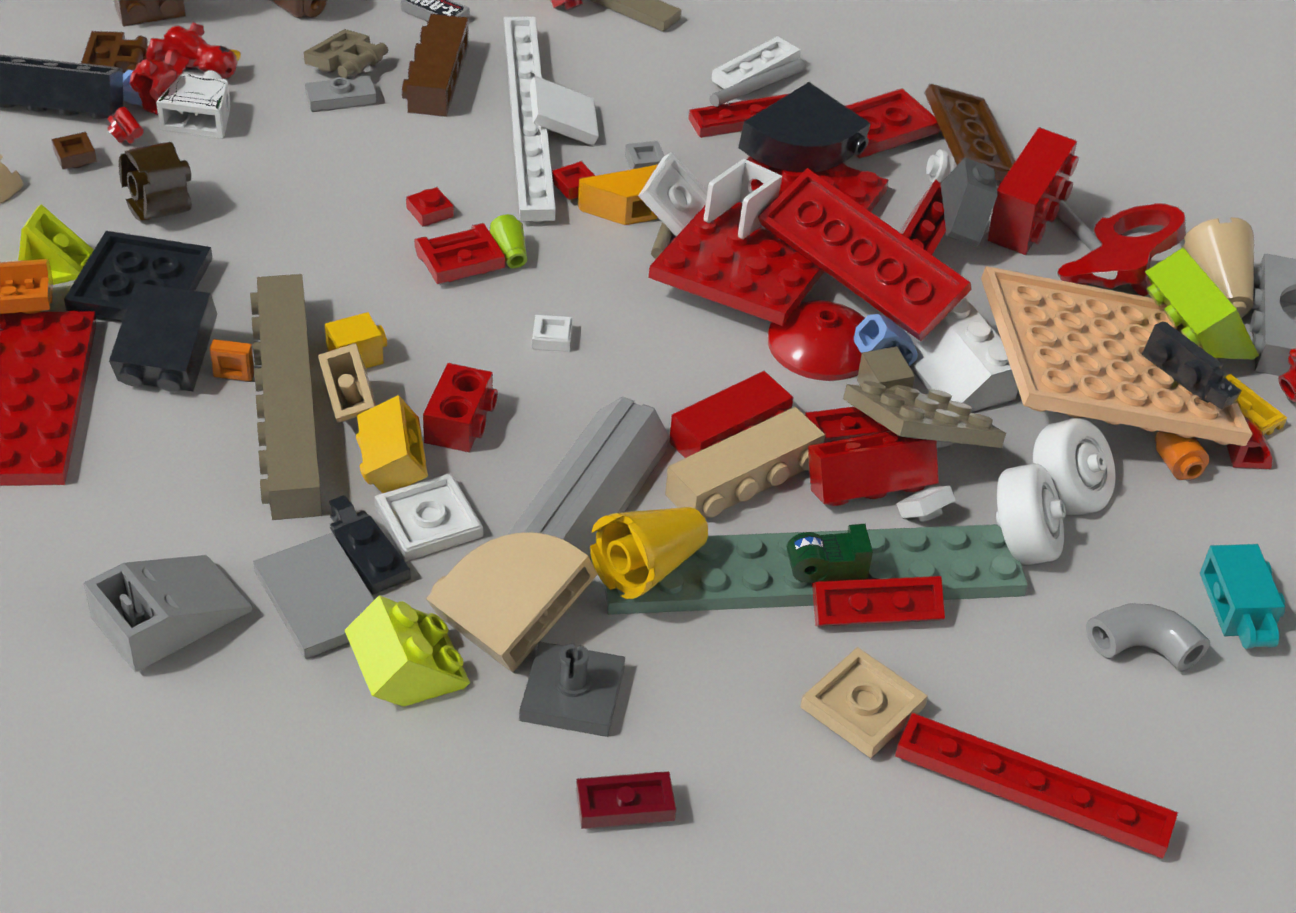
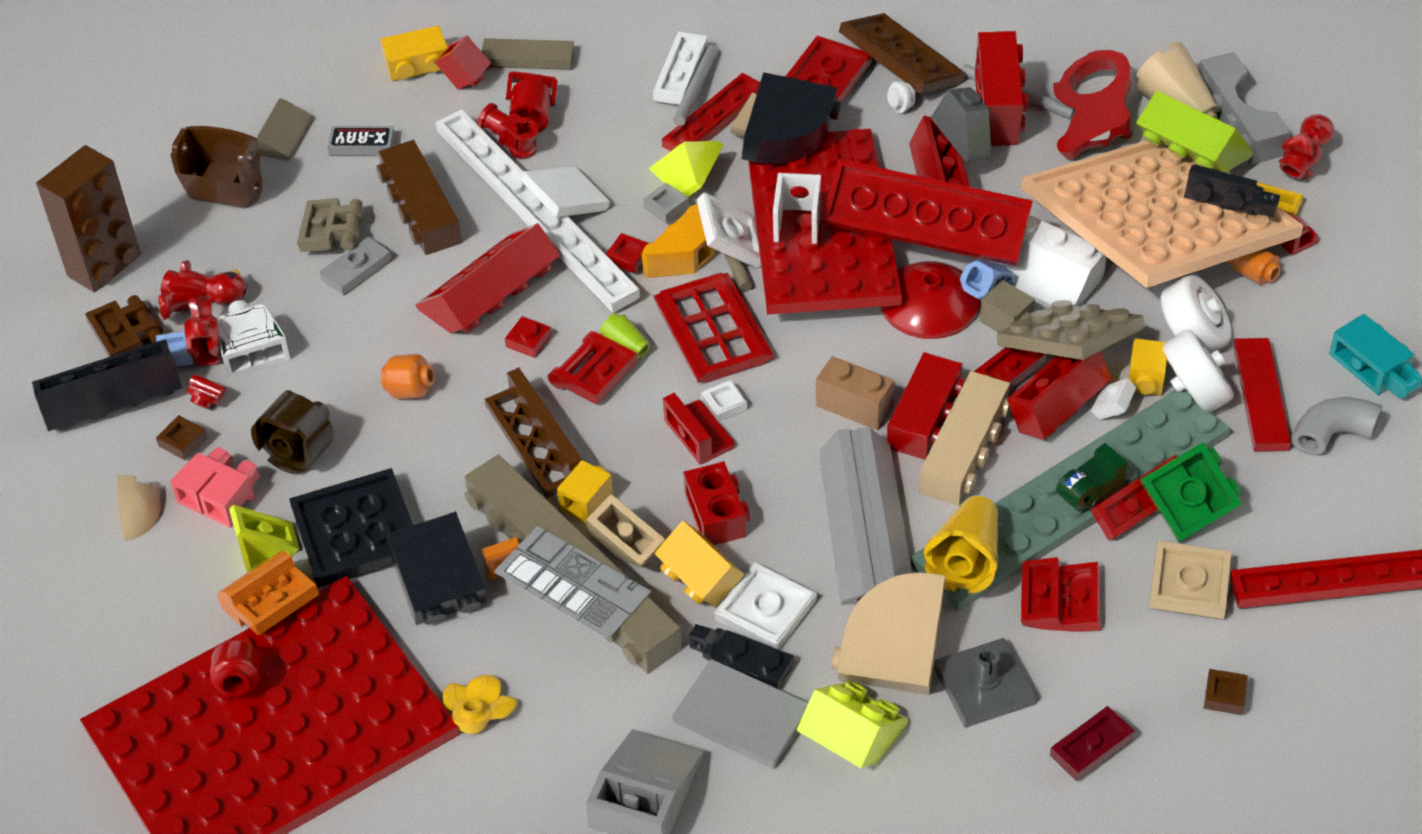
camera: 25 degrees left, 5 degrees up
(64, 191) = (212, 486): none -> coral hips
(99, 464) = (477, 703): none -> yellow plate
(262, 403) = (572, 582): none -> light grey sticker
(294, 187) = (407, 376): none -> orange head
(371, 266) = (543, 425): none -> reddish brown fence
(434, 146) = (490, 279): none -> red slope
(506, 342) = (696, 428): none -> red panel
(561, 47) = (510, 130): none -> red connector
(597, 271) = (713, 327): none -> red piece
(598, 34) = (531, 96): none -> red piece
(670, 374) = (854, 392): none -> medium nougat brick
(693, 134) = (687, 165): none -> neon yellow slope
(719, 650) = (1061, 595): none -> red slope
(808, 826) = (1225, 691): none -> reddish brown plate
(929, 617) = (1192, 491): none -> green plate
(978, 490) = (1147, 366): none -> yellow brick
(1090, 573) = (1261, 394): none -> red tile

